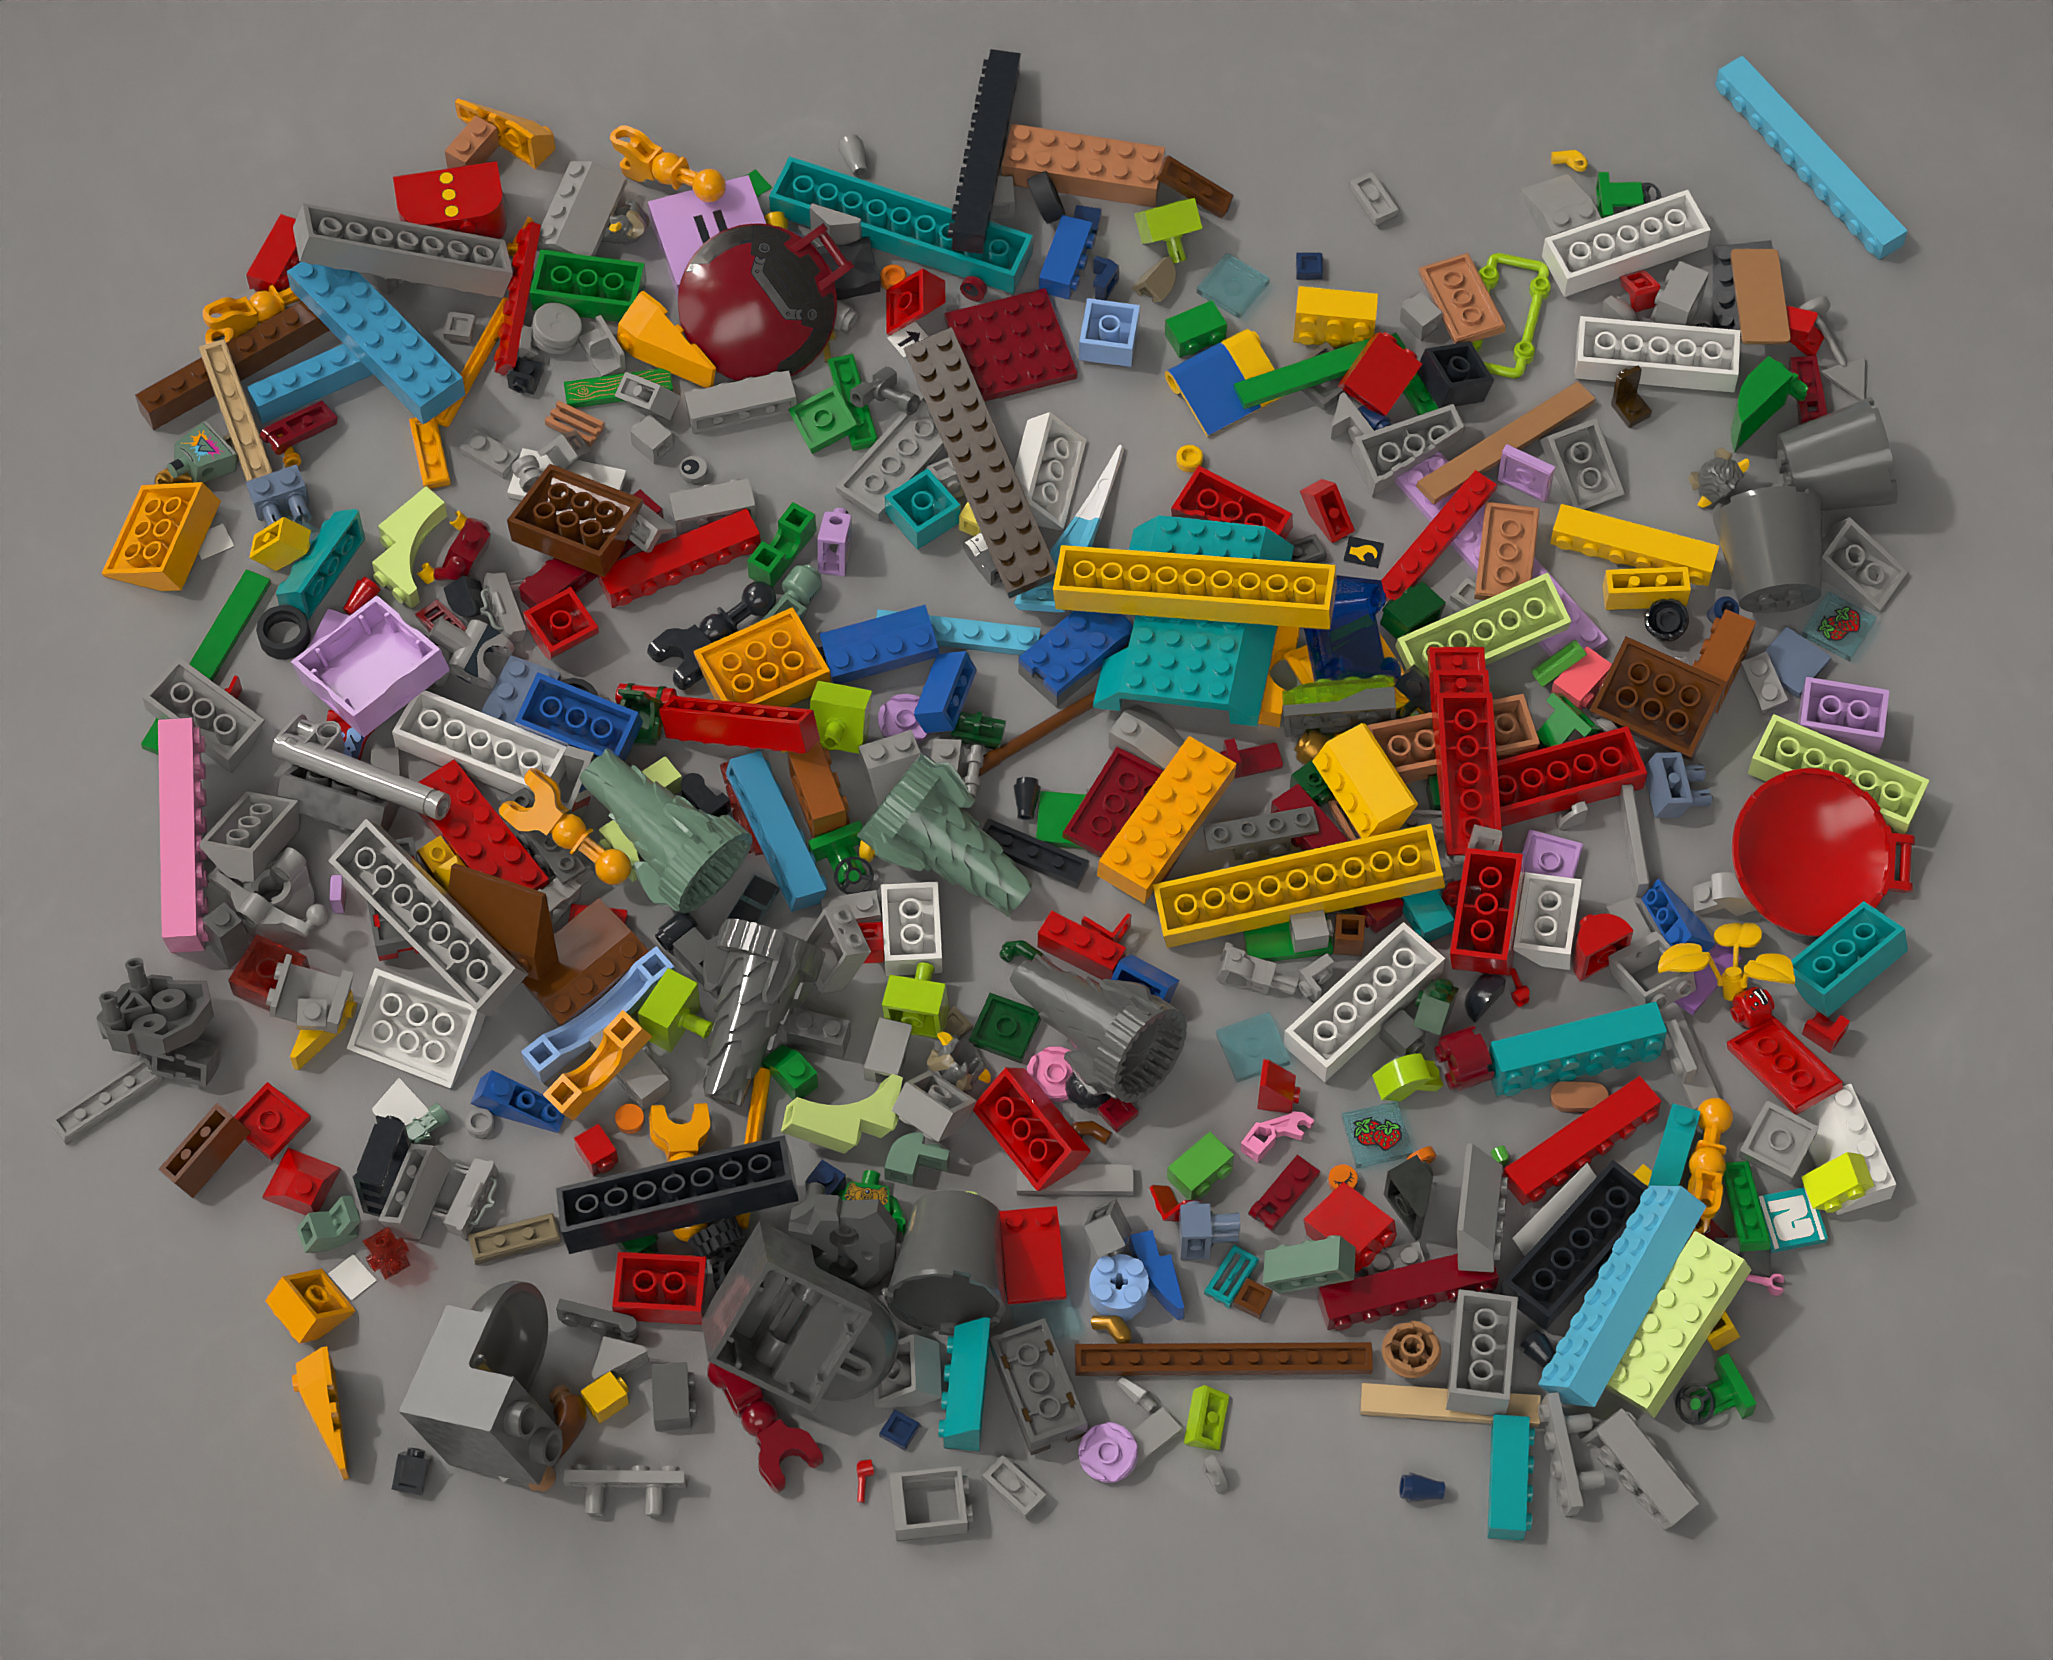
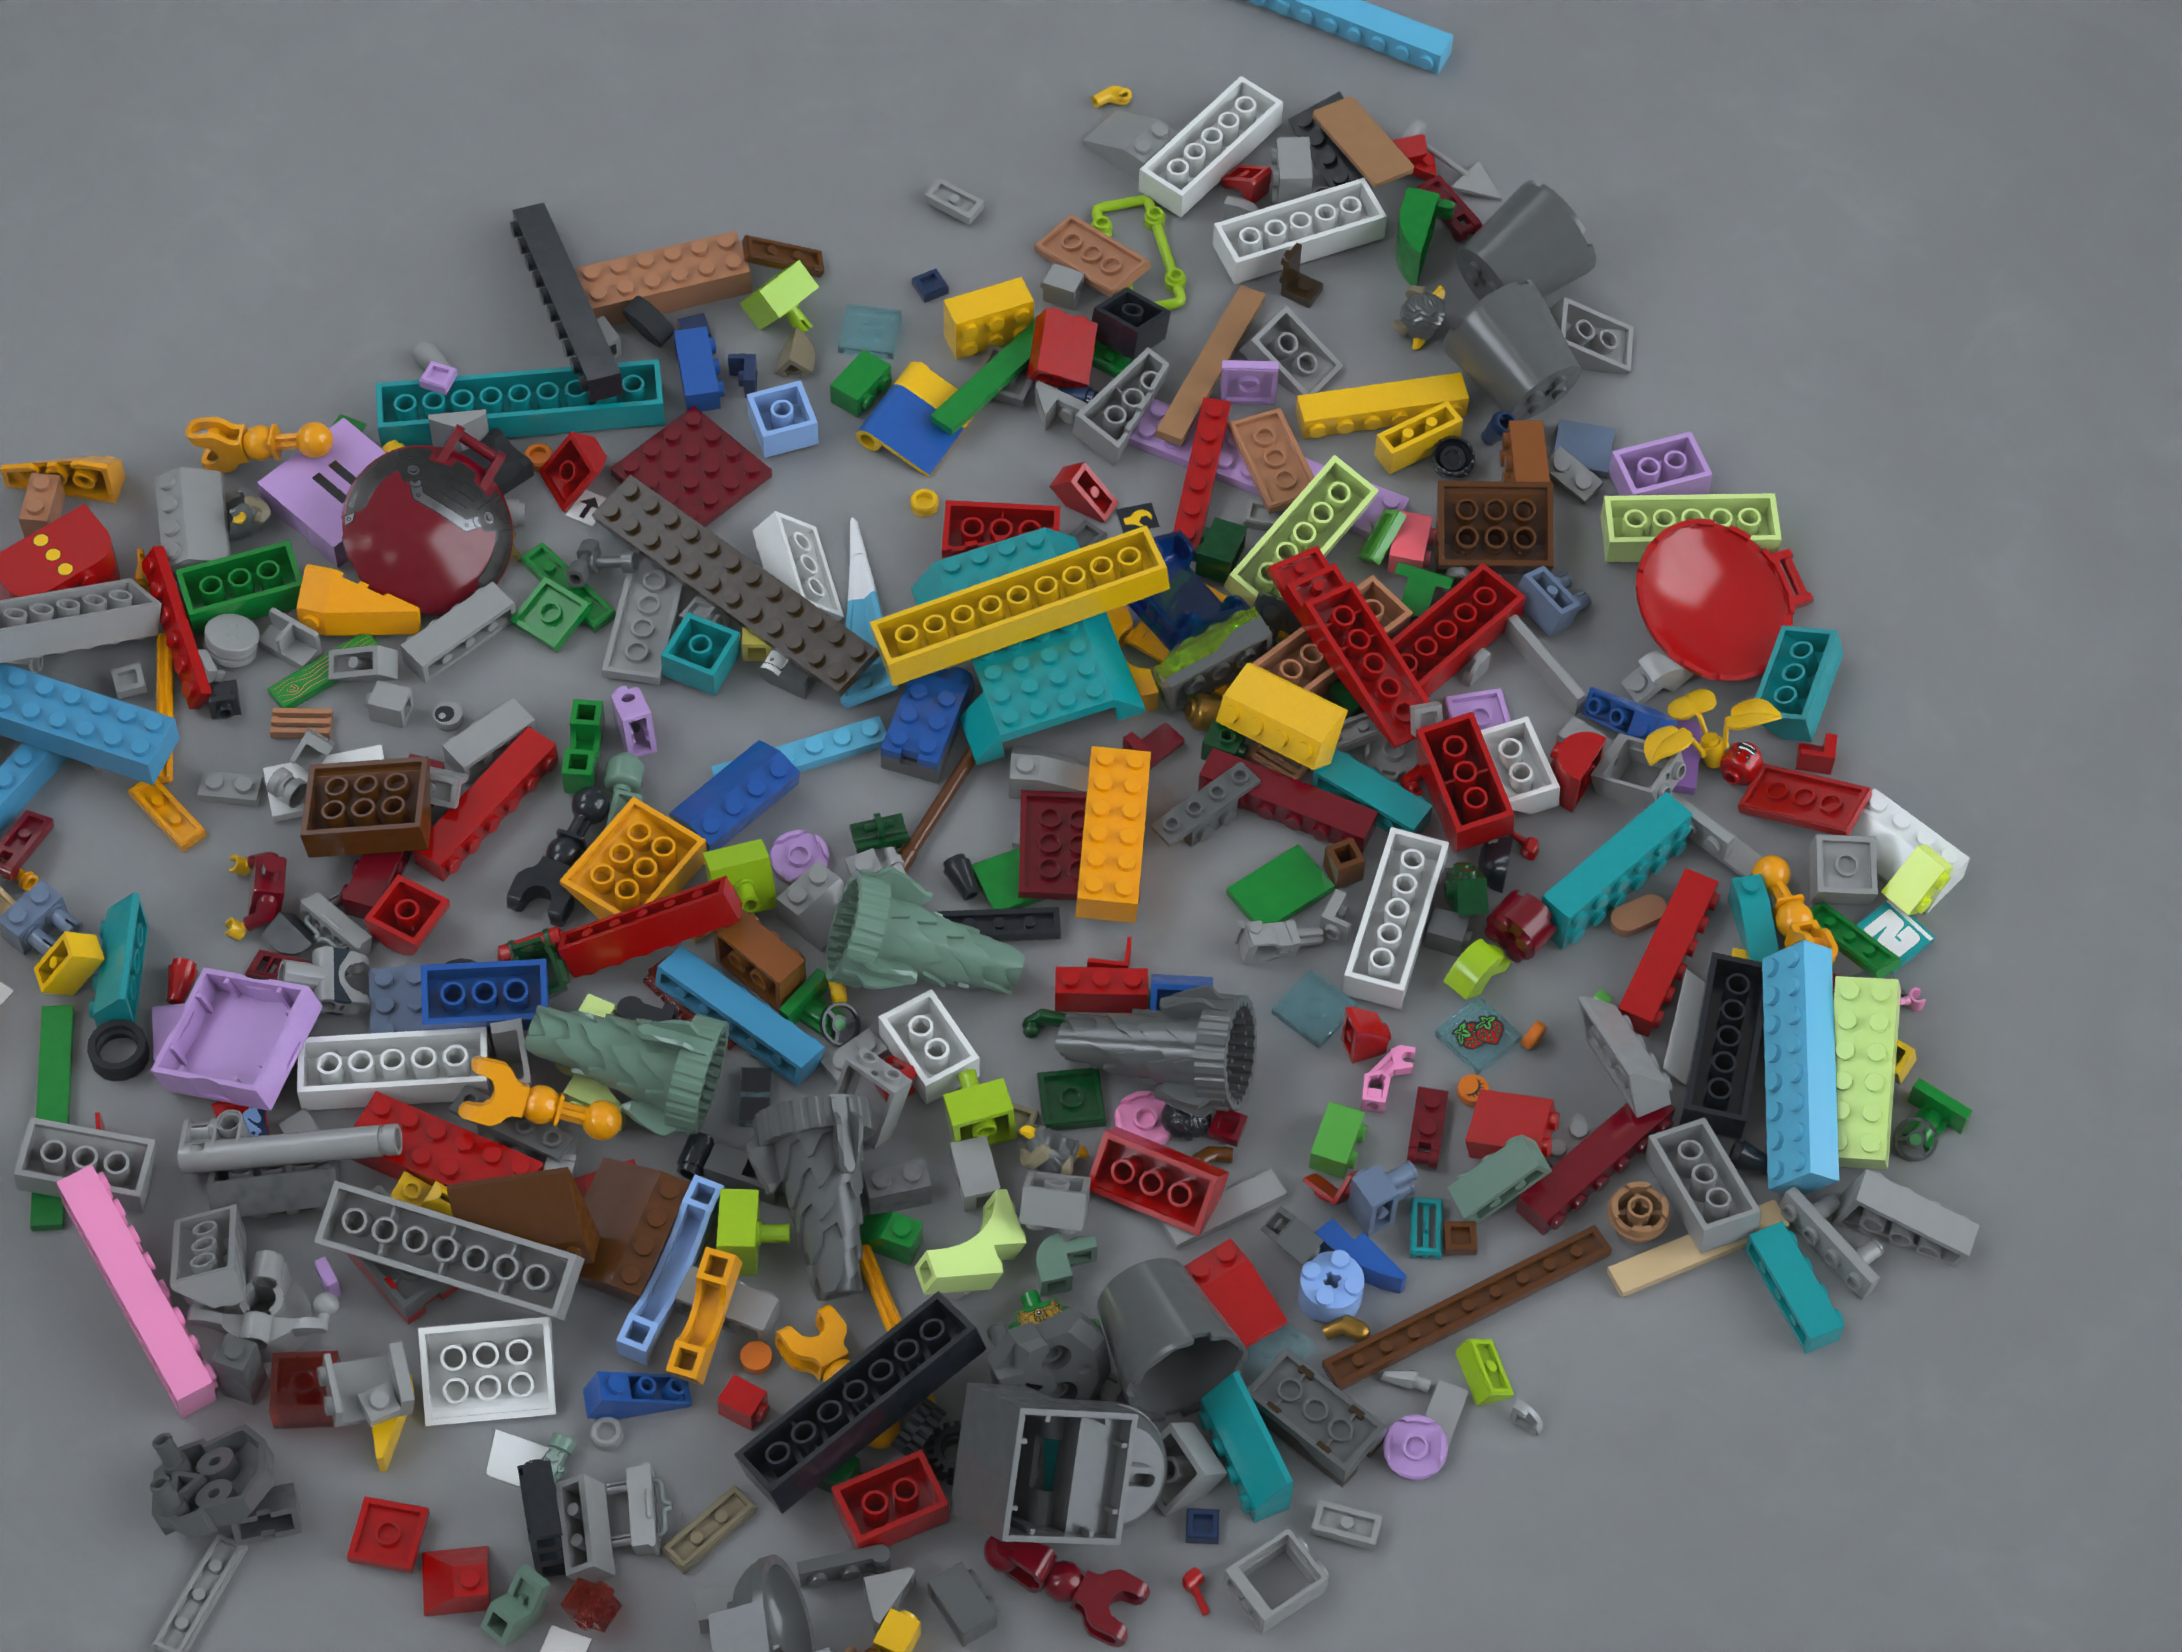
camera: 30 degrees left, 5 degrees down
(204, 1150) = (342, 1593): reddish brown brick -> none
(402, 537) = (189, 904): yellowish green arch -> none
(829, 1177) = (988, 1314): dark blue brick -> none
(841, 173) = (438, 377): none -> lavender tile
(945, 692) = (827, 812): blue brick -> none
(973, 288) = (625, 434): dark red tile -> none
(1298, 883) = (1275, 838): yellow brick -> none
(1310, 931) = (1306, 876): light grey brick -> none
(1409, 1192) = (1550, 1071): pearl dark grey slope -> none
(1420, 1488) = (1719, 1337): dark blue cone -> none
(1621, 194) = (1178, 106): green piece -> none
(1839, 626) = (1604, 400): clear light blue tile -> none

